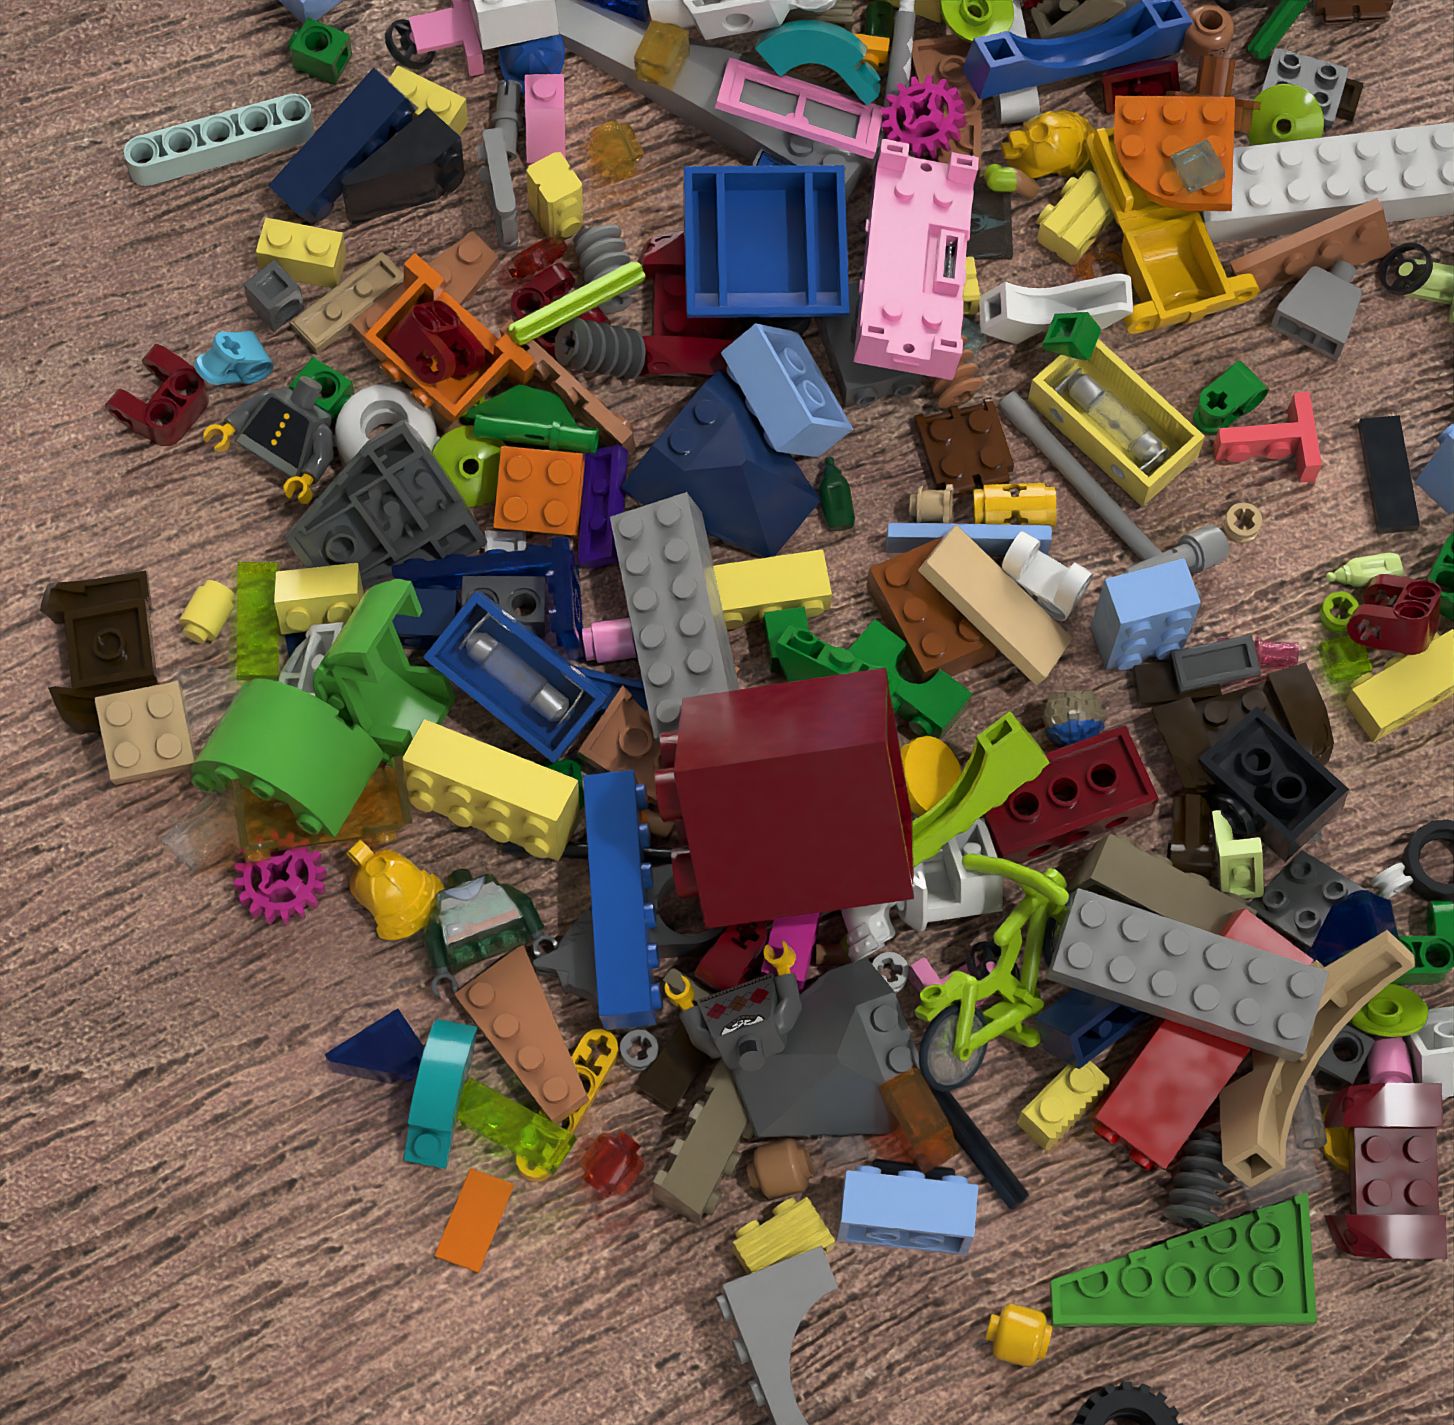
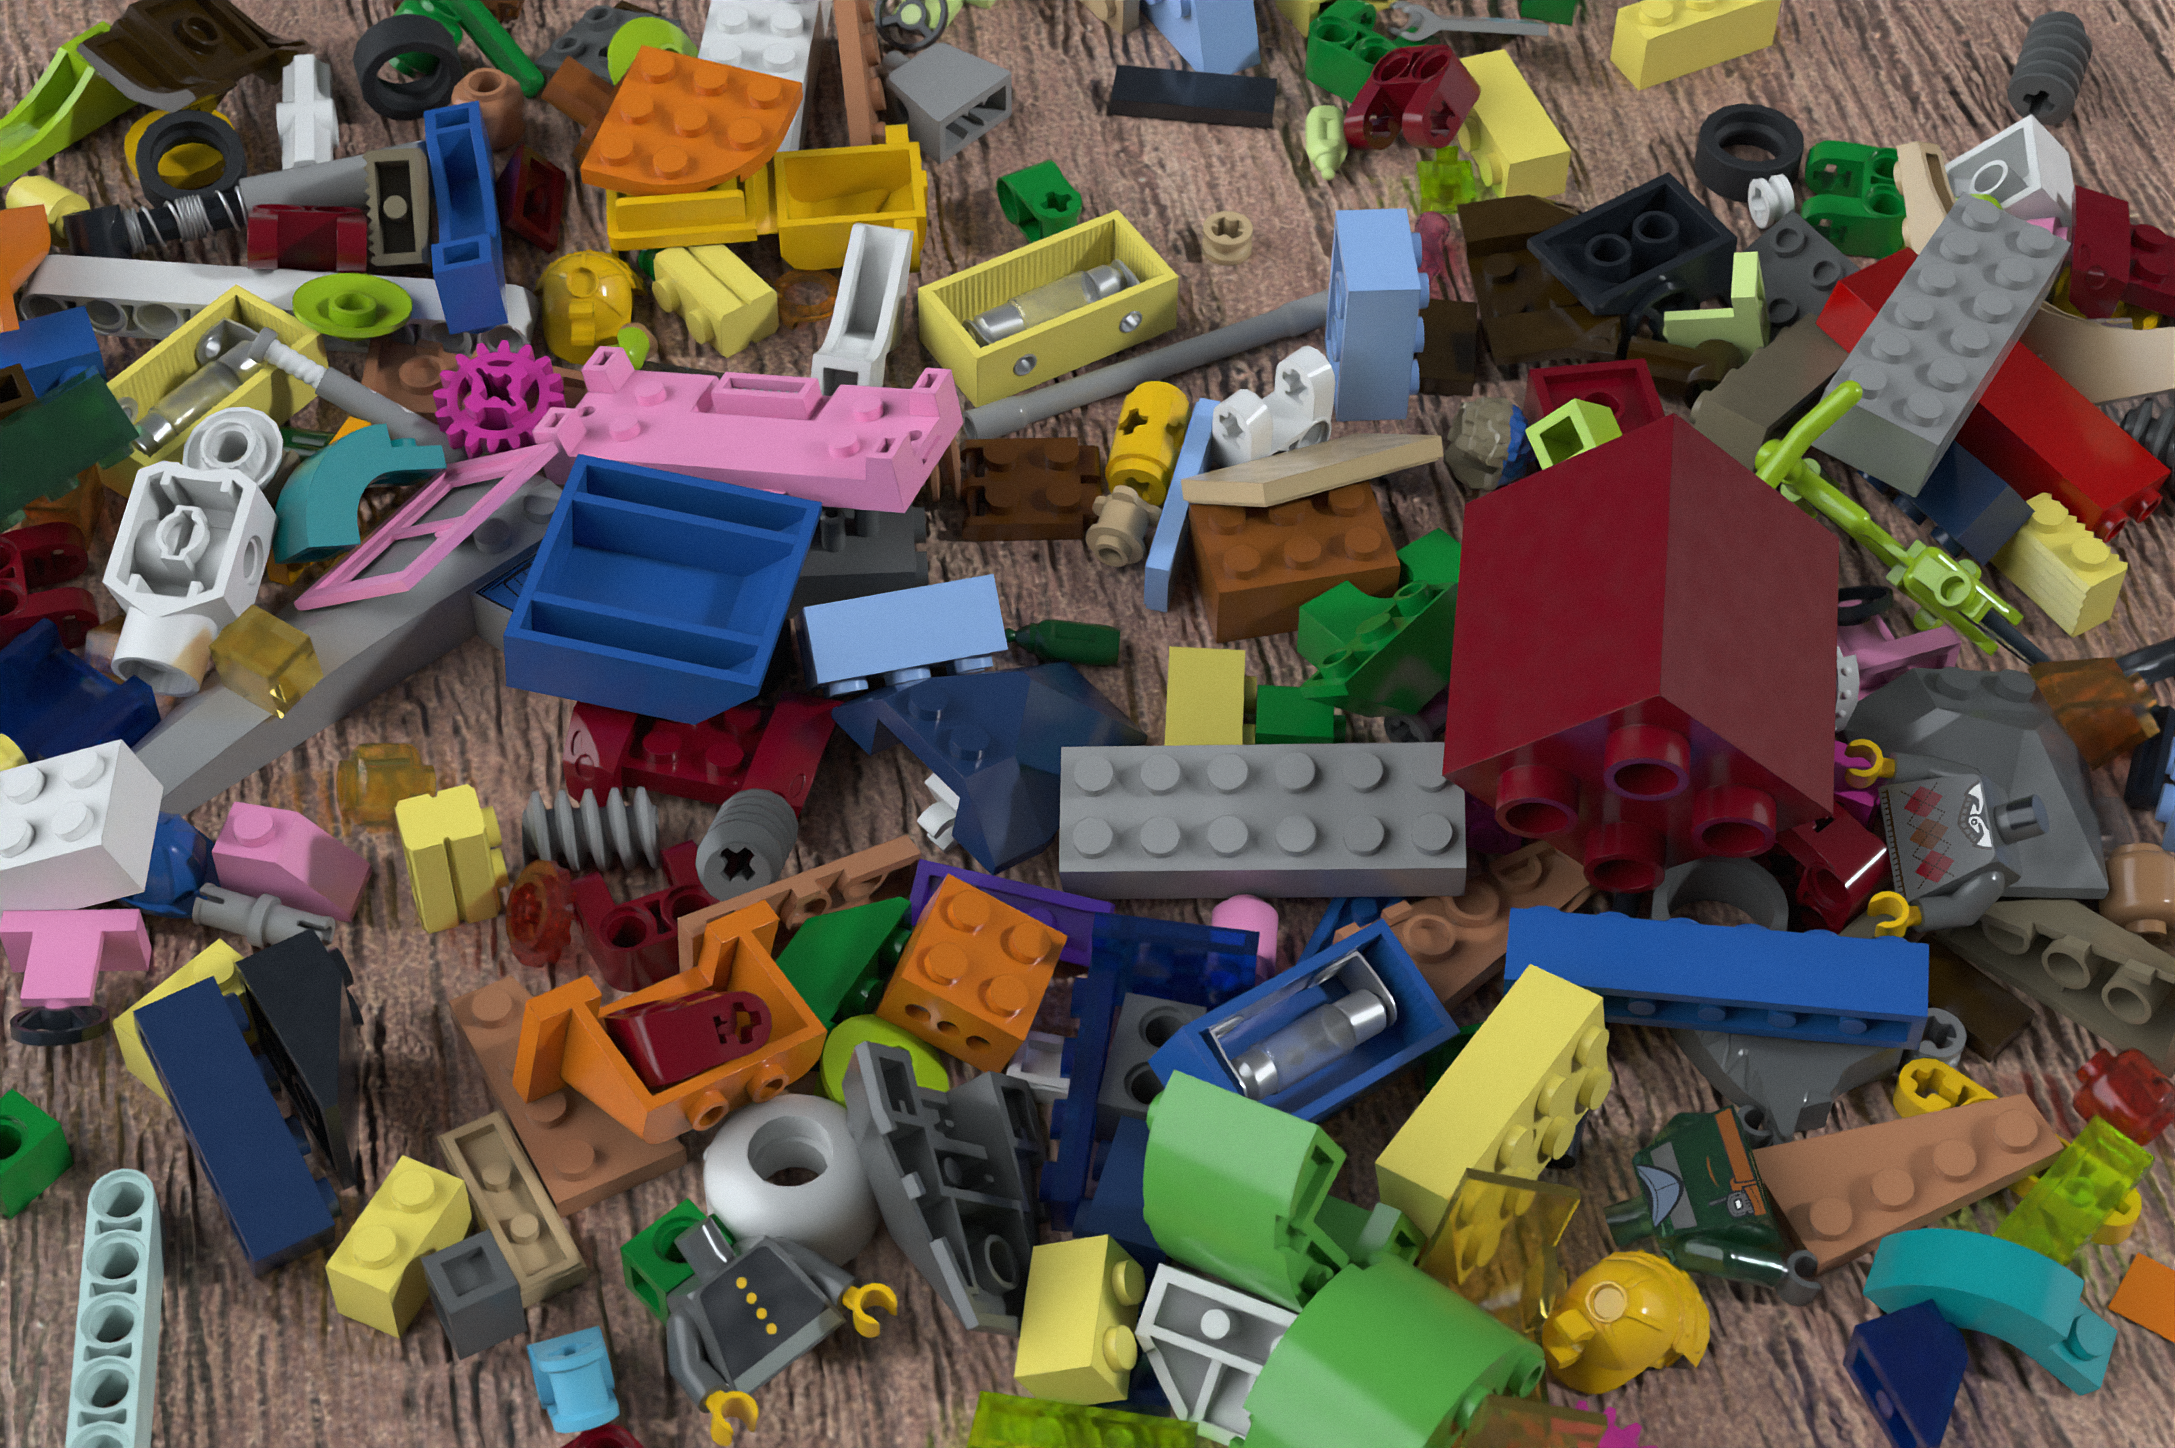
camera: 75 degrees left, 20 degrees down
(498, 177) = (415, 923): light grey container -> none
(537, 433) = (889, 923): green pin -> none
(576, 303) = (678, 835): lime axle -> none
(1072, 335) = (923, 301): green slope -> none
(1198, 166) = (740, 90): clear light blue tile -> none
(1200, 548) = (1271, 280): light grey piece -> none
(1215, 663) = (1449, 290): dark grey tile -> none
(1276, 440) = (1125, 156): coral bracket -> none
(1341, 599) = (1379, 177): lime bush -> none
(1352, 925) = (1855, 213): clear blue slope -> none

